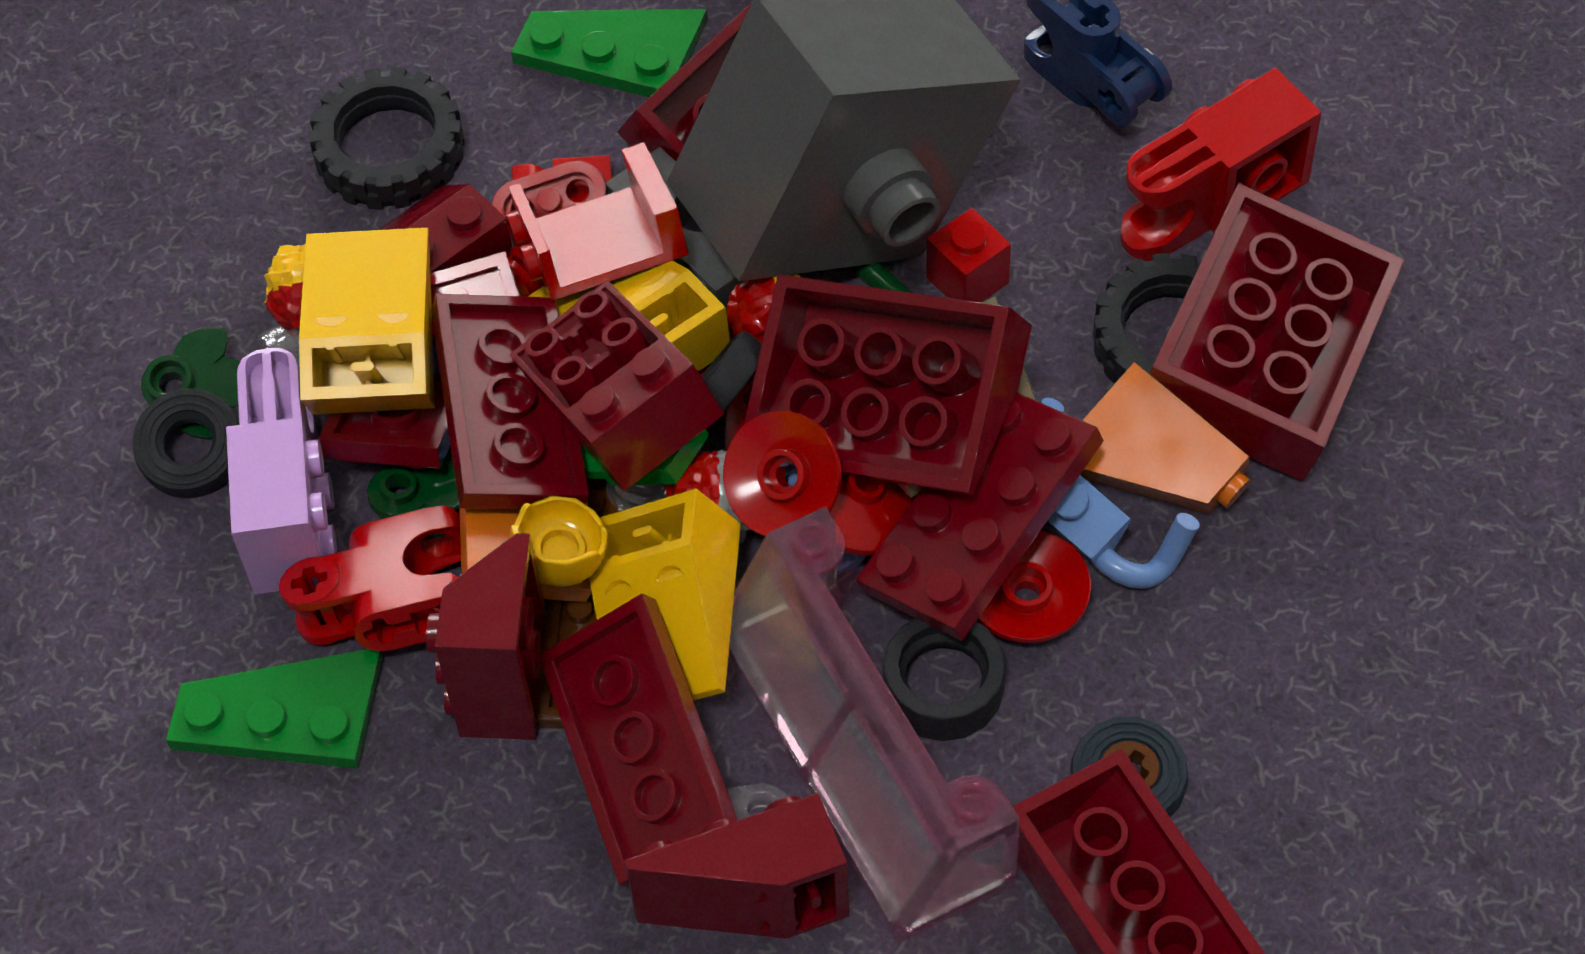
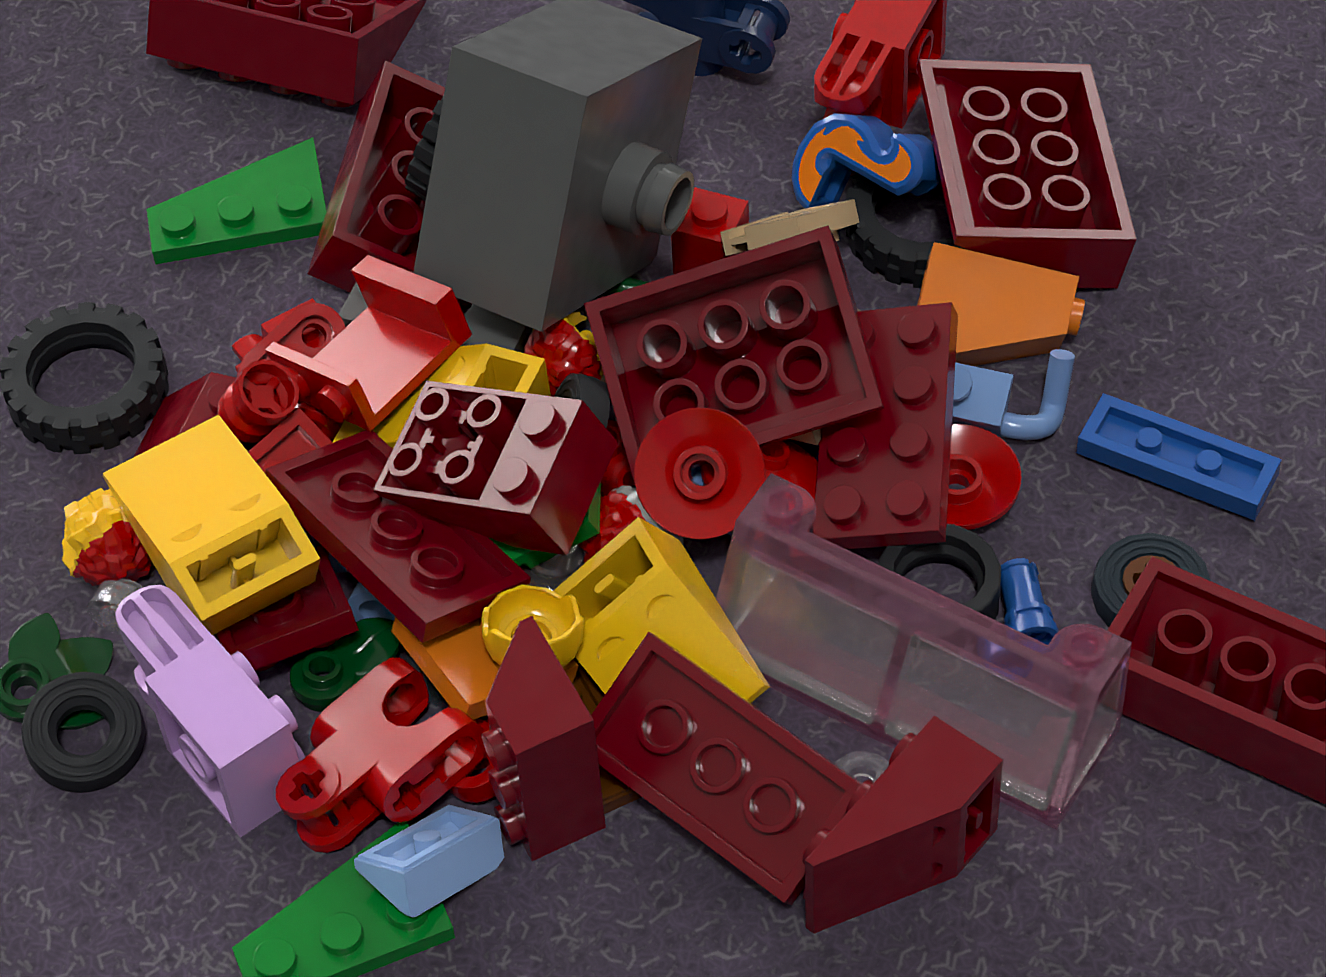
camera: 30 degrees left, 5 degrees down
(373, 694) = (433, 858): none -> light blue slope
(484, 221) = (258, 400): none -> red wheel
(1002, 741) = (1025, 601): none -> blue pin
(1032, 286) = (786, 225): none -> tan plate
(1140, 241) = (866, 146): none -> blue animal
(1238, 667) = (1179, 456): none -> blue plate

